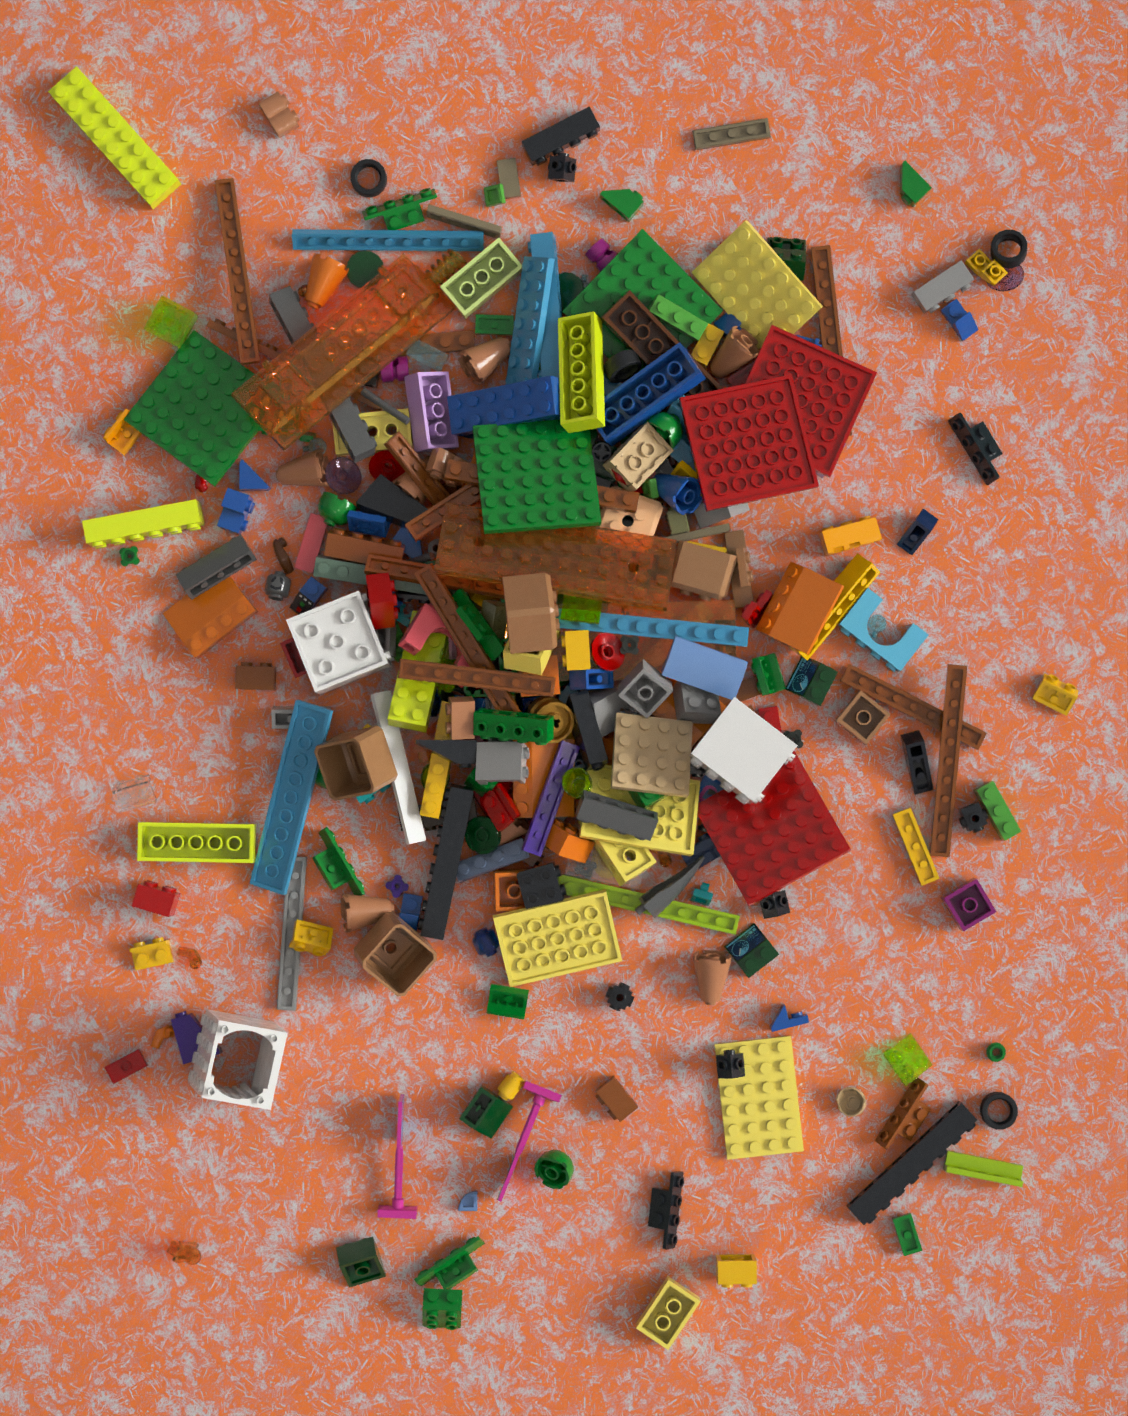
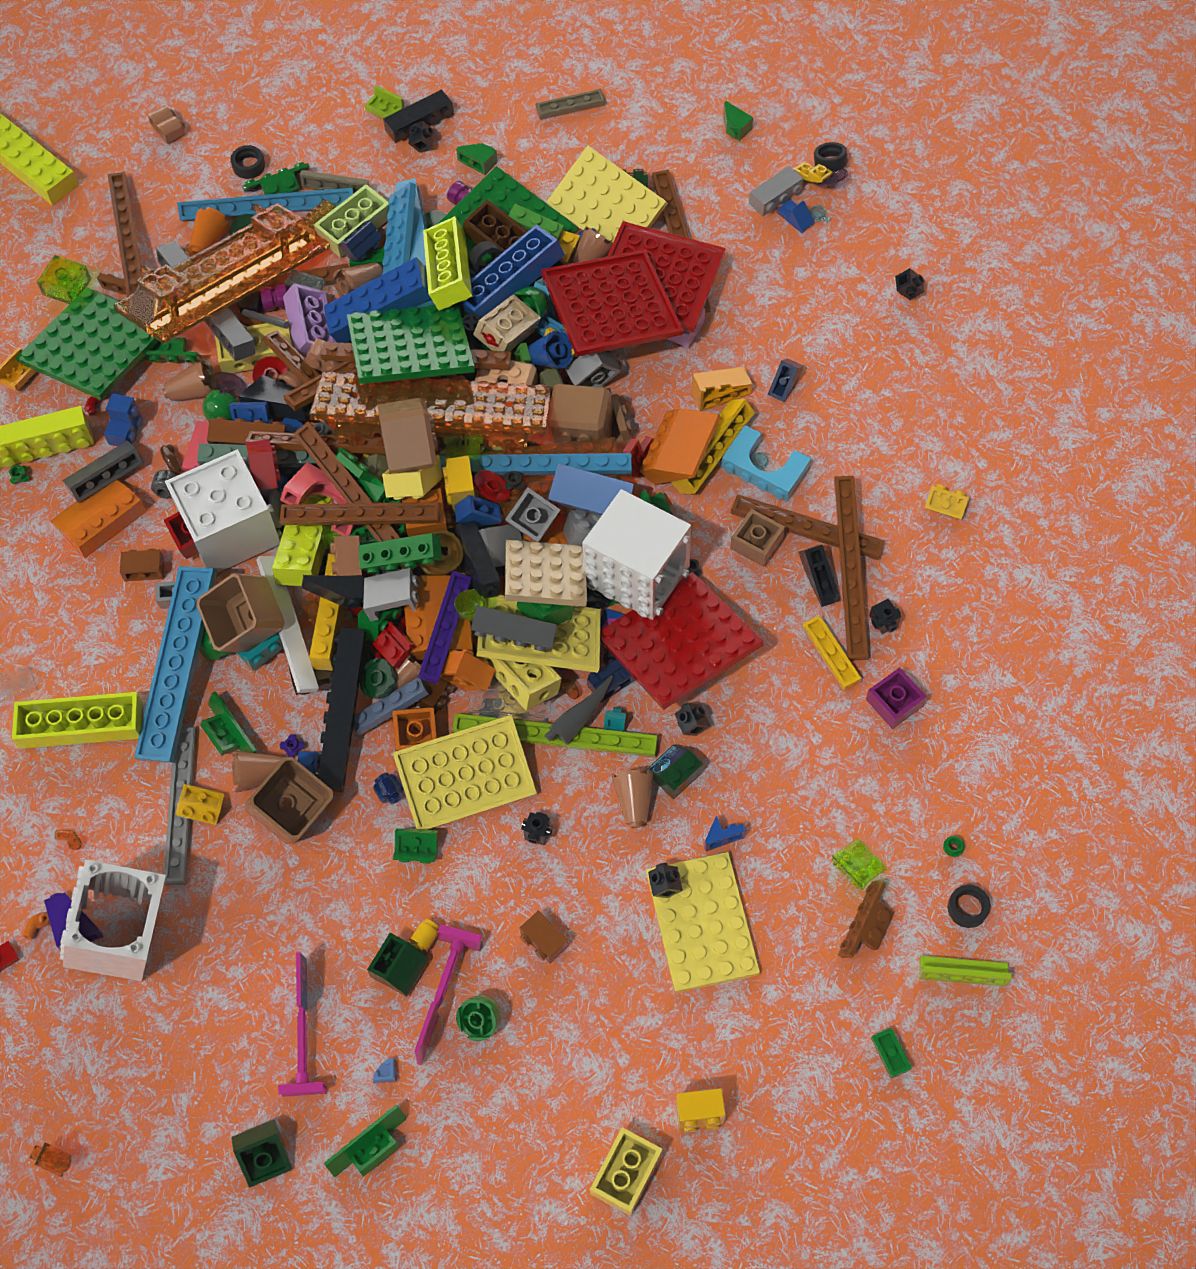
camera: 10 degrees left, 25 degrees down
(151, 954) = (26, 839): yellow bracket -> none
(156, 899) = (31, 778): red brick -> none
(249, 479) = (143, 399): blue slope -> none
(442, 1308) = (358, 1197): green bracket -> none
(489, 313) = (360, 241): none -> dark blue brick
(494, 195) = (362, 163): bright green tile -> none
(509, 177) = (374, 152): dark tan tile -> none
(524, 116) = (384, 103): none -> lime bracket
(541, 885) = (441, 717): black bracket -> none
(665, 1209) = (611, 1054): black bracket -> none
(811, 680) = (704, 512): slope -> none
(851, 1101) = (804, 910): tan hair -> none
(912, 1163) = (882, 972): black brick -> none
(978, 445) = (830, 307): black bracket -> none
(987, 323) = (819, 213): none -> clear light blue piece
(997, 810) = (913, 612): bright green brick -> none
(1065, 430) = (909, 284): none -> black brick

